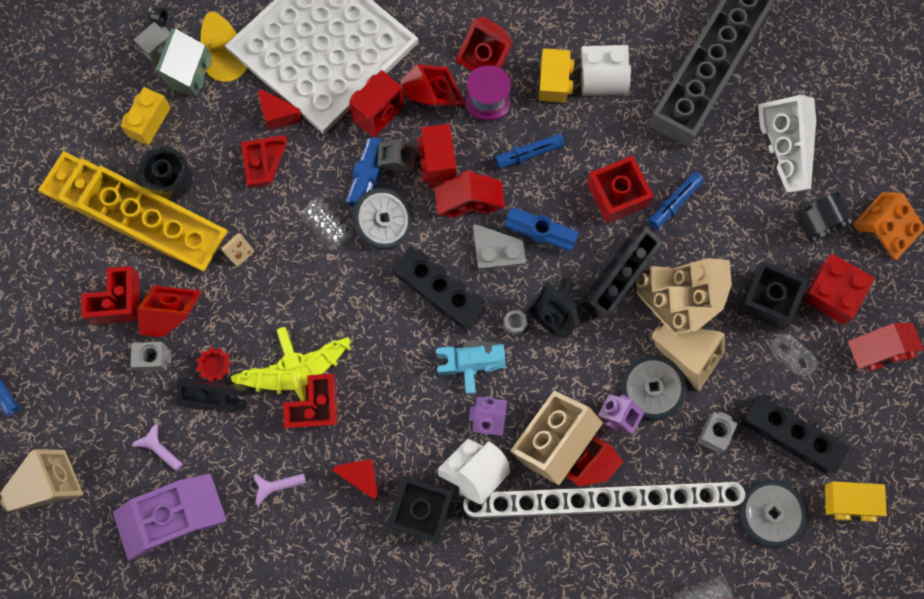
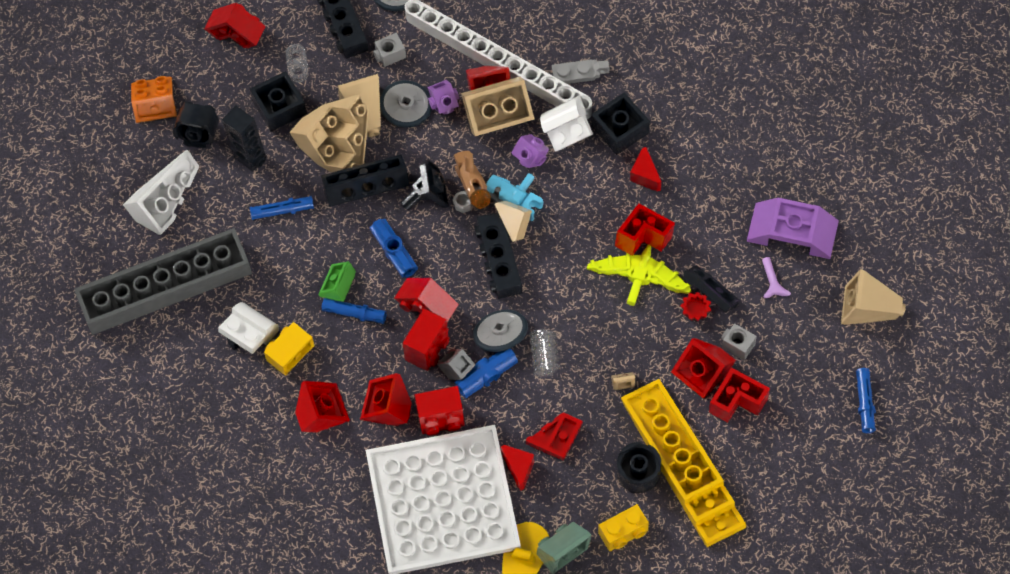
camera: 140 degrees left, 10 degrees down
(266, 487) = (713, 208): lavender piece -> none
(451, 330) = (514, 218): none -> tan slope
(488, 93) = (350, 365): magenta hat -> none
(497, 249) = (435, 258): light grey wing -> none
(512, 549) = (580, 70): none -> light grey hinge
(520, 341) = (471, 179): none -> medium nougat piece
(565, 165) = (338, 281): none -> bright green slope
(619, 189) = (316, 235): red brick -> none
(762, 214) = (244, 138): none -> black brick
(838, 289) = (230, 78): red brick -> none

